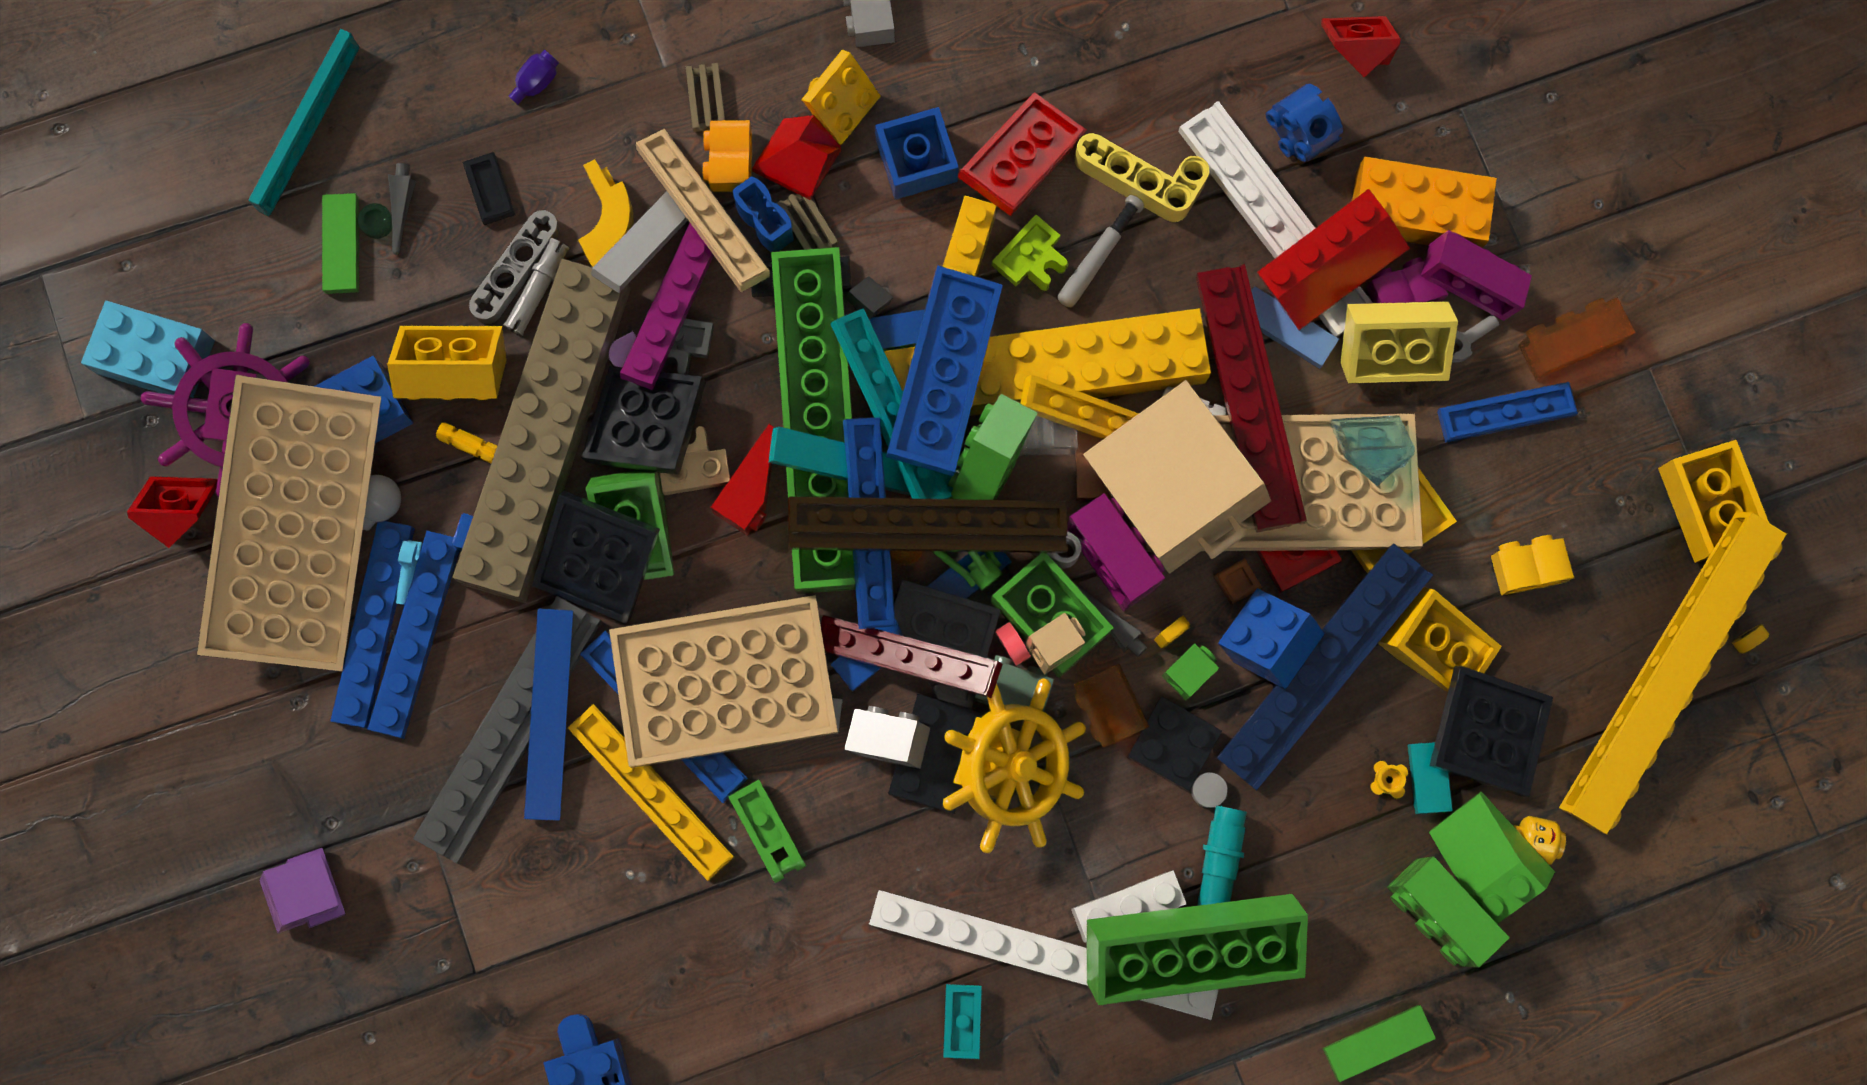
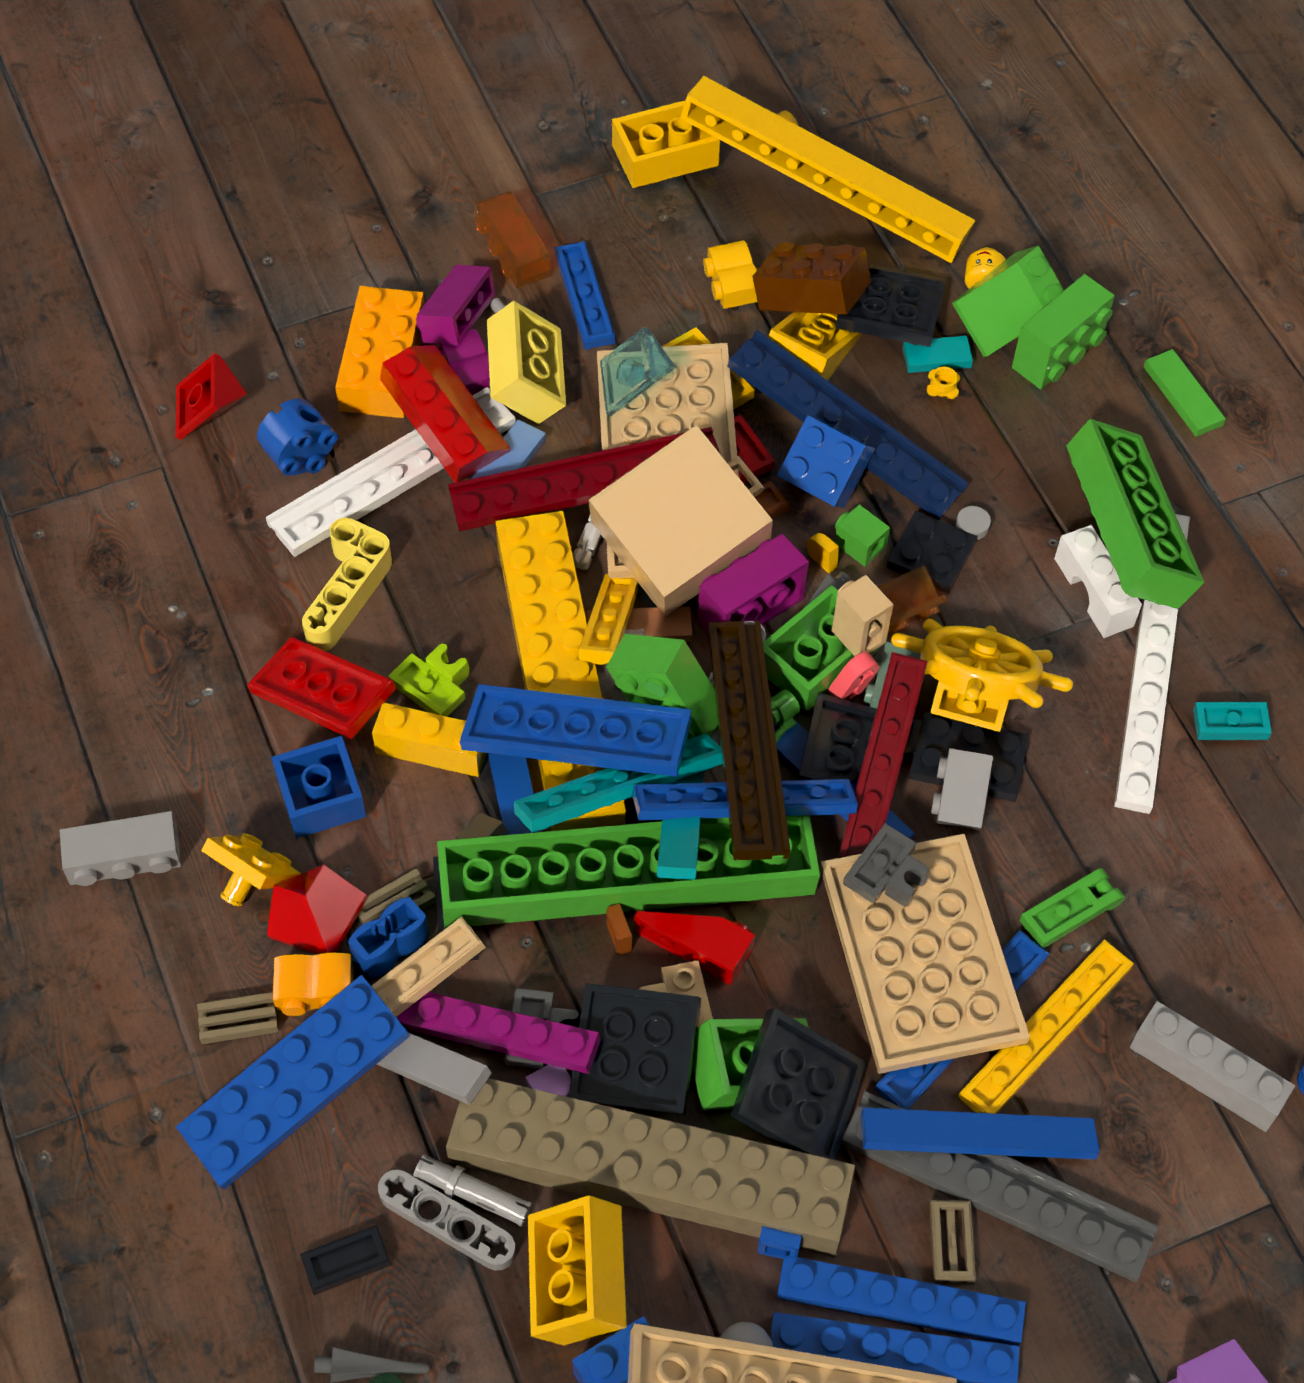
camera: 90 degrees left, 20 degrees down
(408, 559) = (816, 1307): medium azure bar -> none
(466, 442) = (666, 1256): yellow axle -> none
(491, 685) = (953, 1274): none -> dark tan tile
(534, 76) = (202, 1213): dark purple plant -> none
(596, 935) = (1212, 1066): none -> light grey brick
(616, 214) = (389, 1102): yellow arch -> none
(637, 140) = (292, 1082): none -> blue plate
(765, 414) = (618, 929): none -> dark orange tile
(798, 650) = (887, 868): none -> dark grey plate
(1095, 258) = (434, 626): light grey piece -> none
(1222, 855) = (1039, 507): teal piece -> none
(1511, 642) = (812, 278): none -> reddish brown brick

